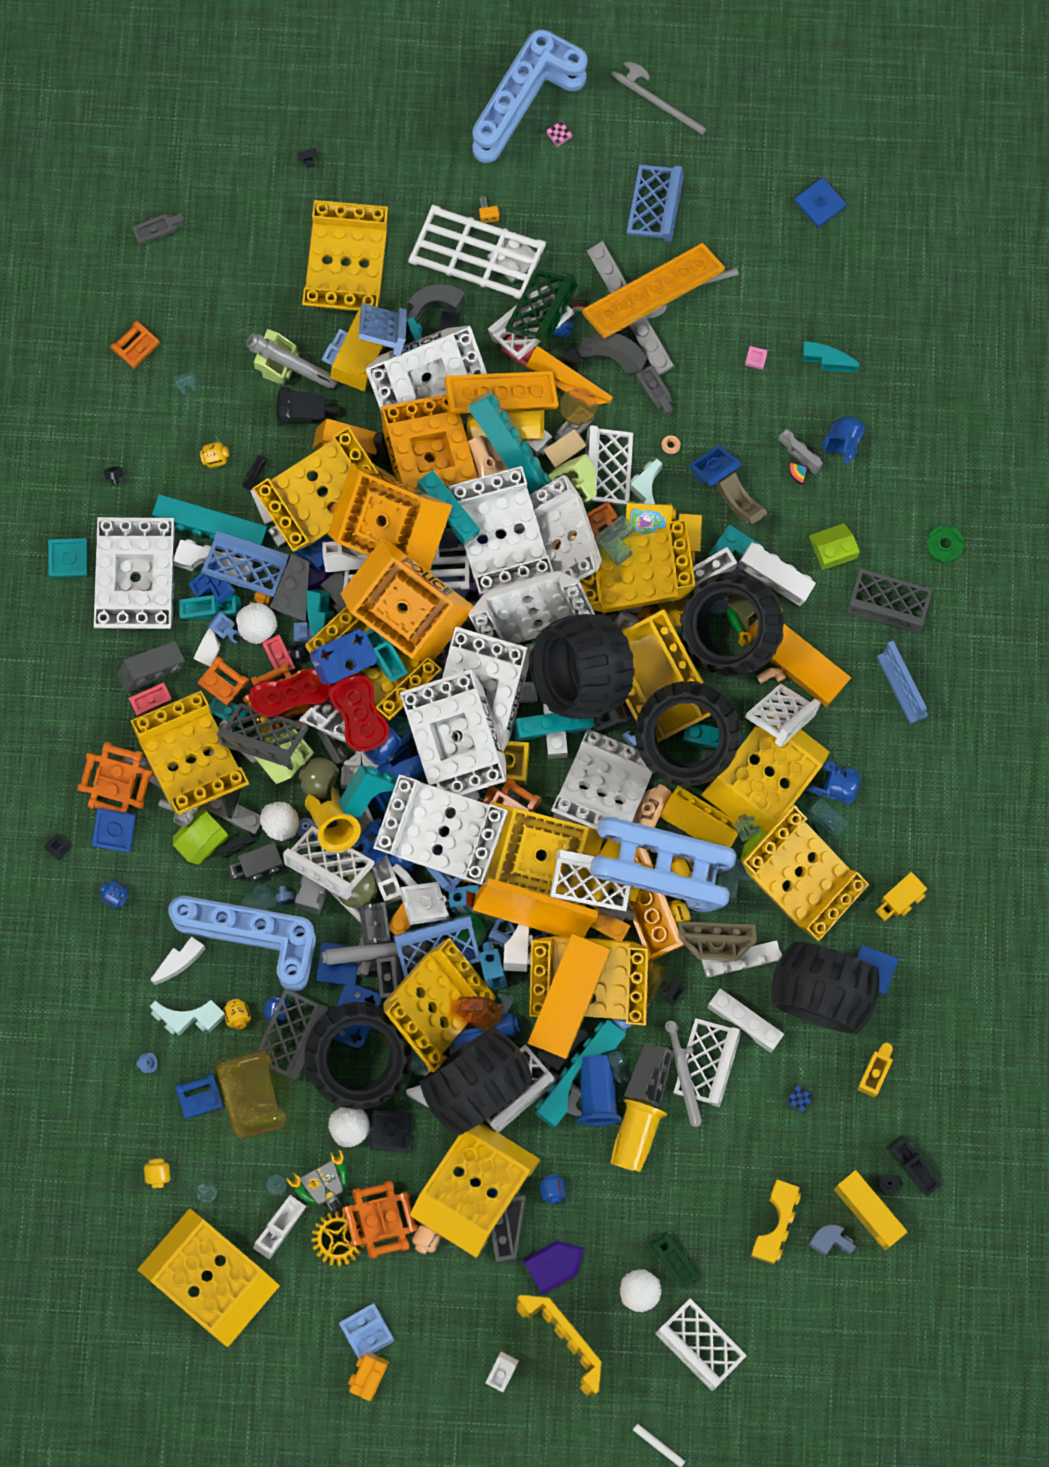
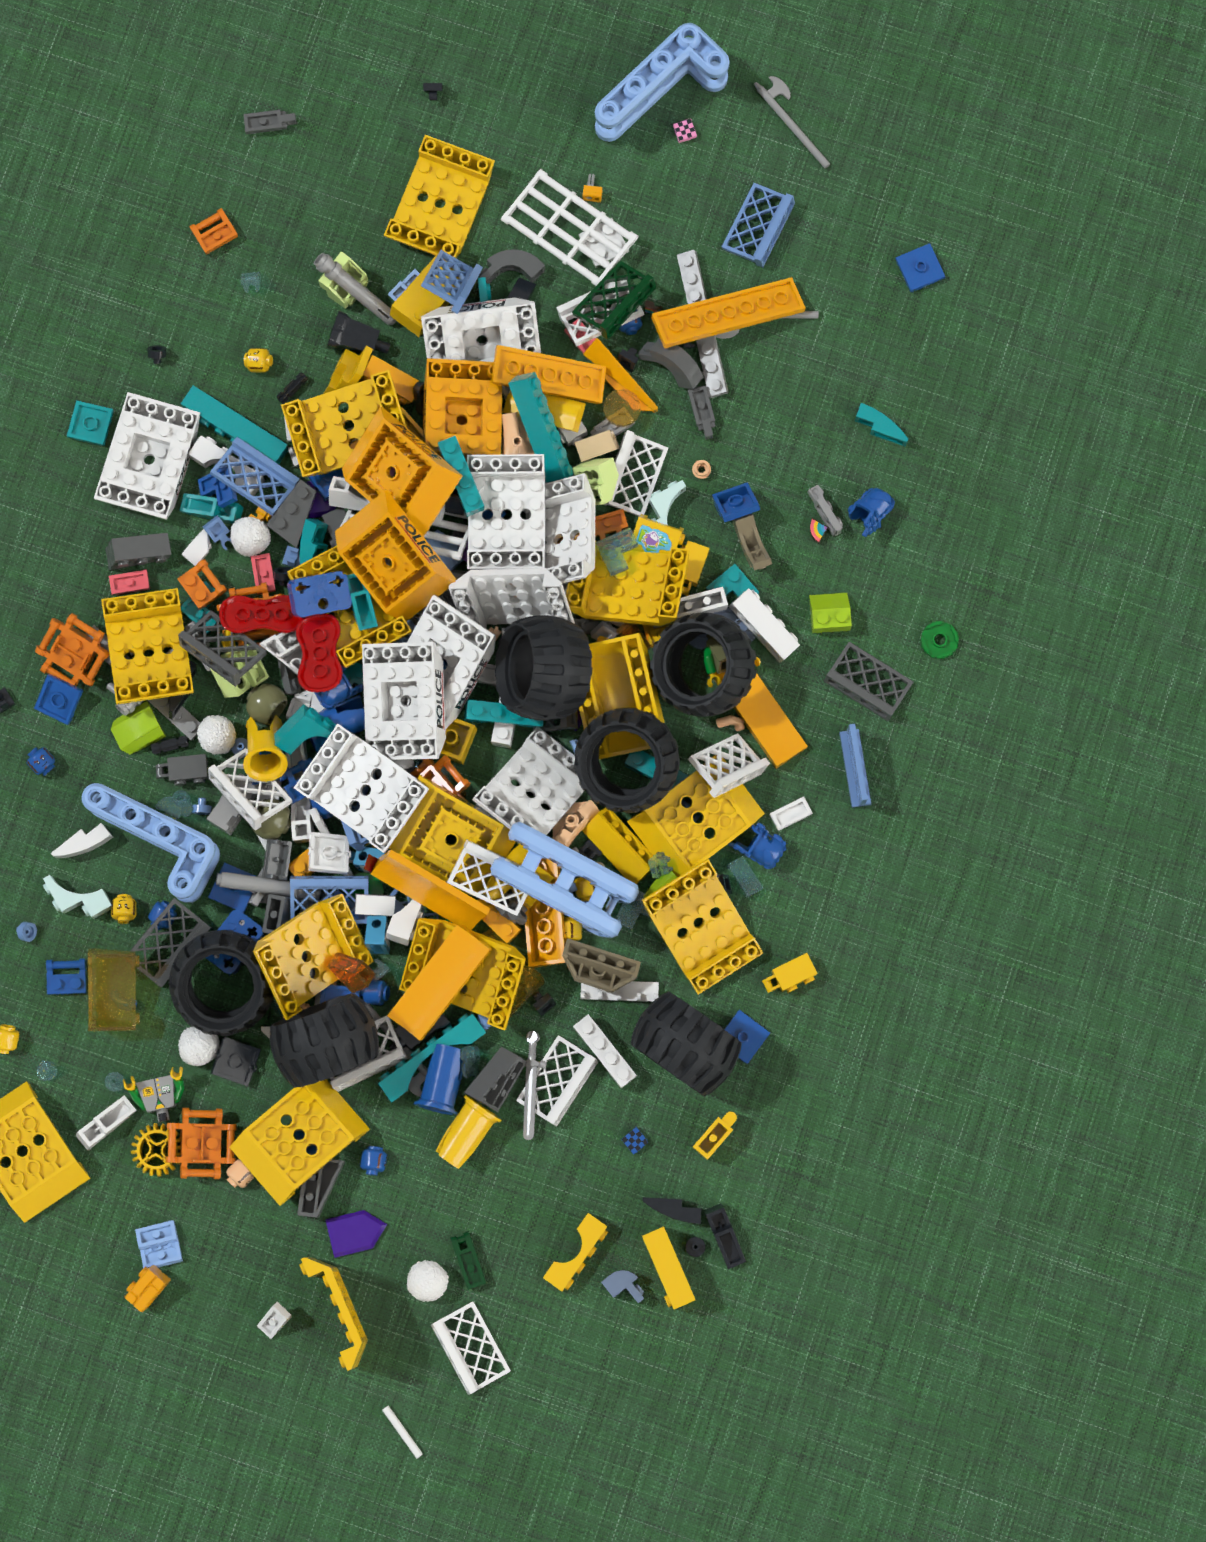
camera: 20 degrees right, 5 degrees up
(306, 439) = (349, 369): none -> yellow slope
(483, 940) = (374, 904): none -> white tile
(756, 357) = (810, 405): bright pink tile -> none
(854, 745) = (791, 813): none -> white tile
(857, 1153) = (673, 1209): none -> black slope

